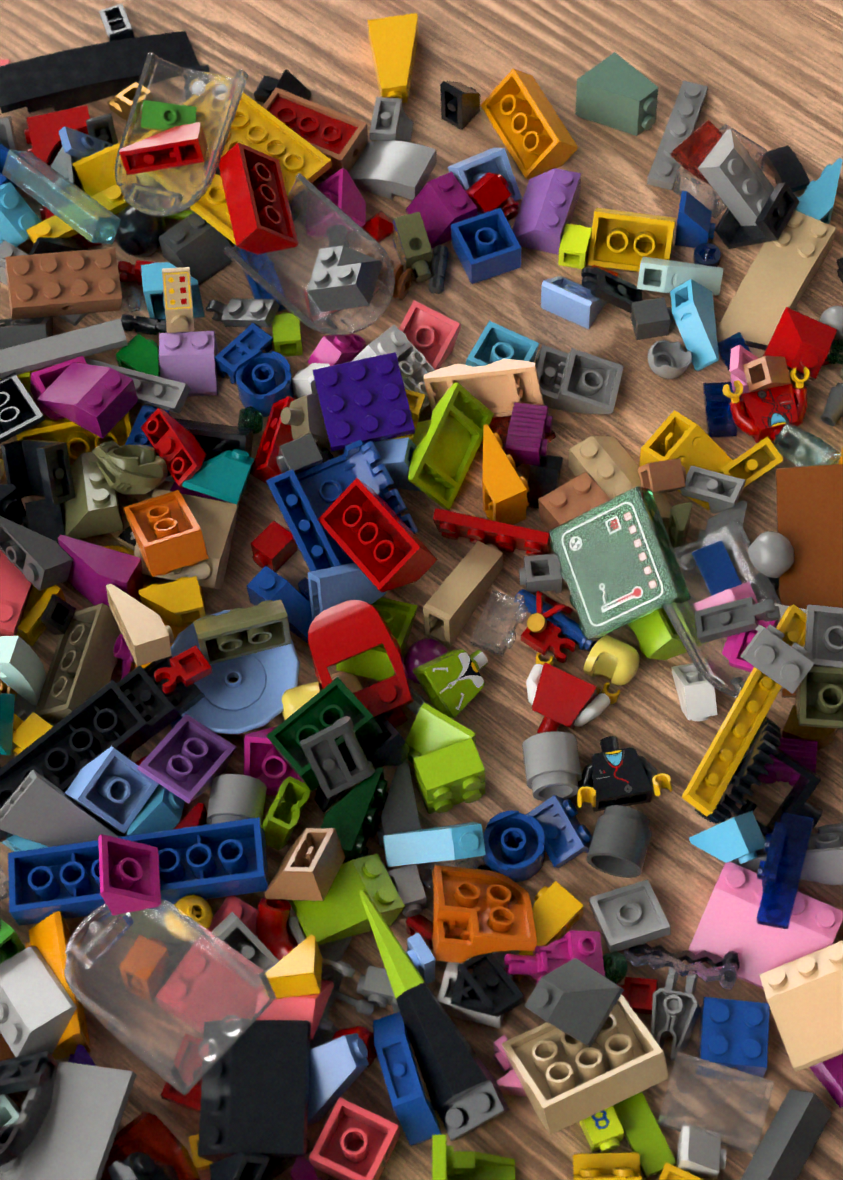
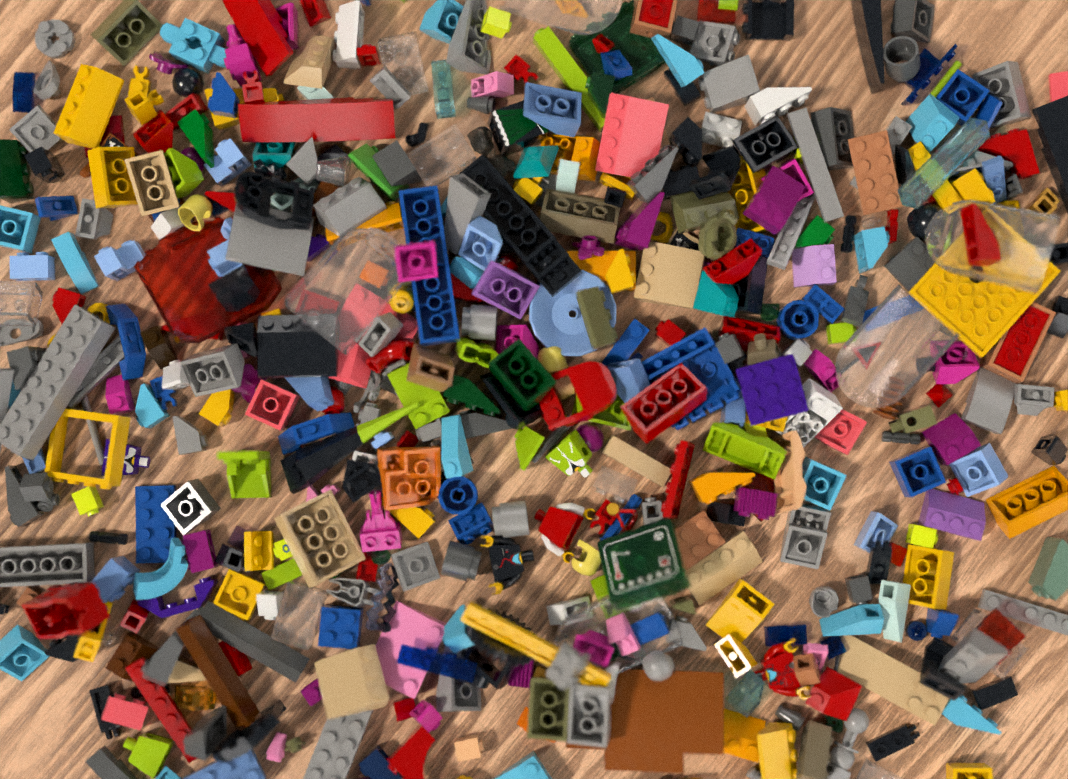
camera: 90 degrees right, 25 degrees up
(140, 626) = (592, 253): tan slope -> none
(164, 116) = (1009, 235): bright green plate -> none
(166, 533) = (666, 262): orange slope -> none
(178, 299) = (854, 255): tan slope -> none
(186, 667) = (565, 285): red plate -> none
(257, 201) = (938, 306): red slope -> none
(298, 971) = (367, 368): yellow slope -> none
(328, 762) = (494, 380): dark grey plate -> none
(343, 279) = (875, 371): dark grey slope -> none
(450, 776) = (501, 454): lime piece -> none
(489, 192) = (963, 473): red brick -> none
(575, 1000) = (349, 533): dark grey slope -> none
(663, 476) = (717, 594): nougat brick -> none
(713, 487) = (713, 628): light grey slope -> none
(733, 618) = (604, 637): dark grey plate -> none

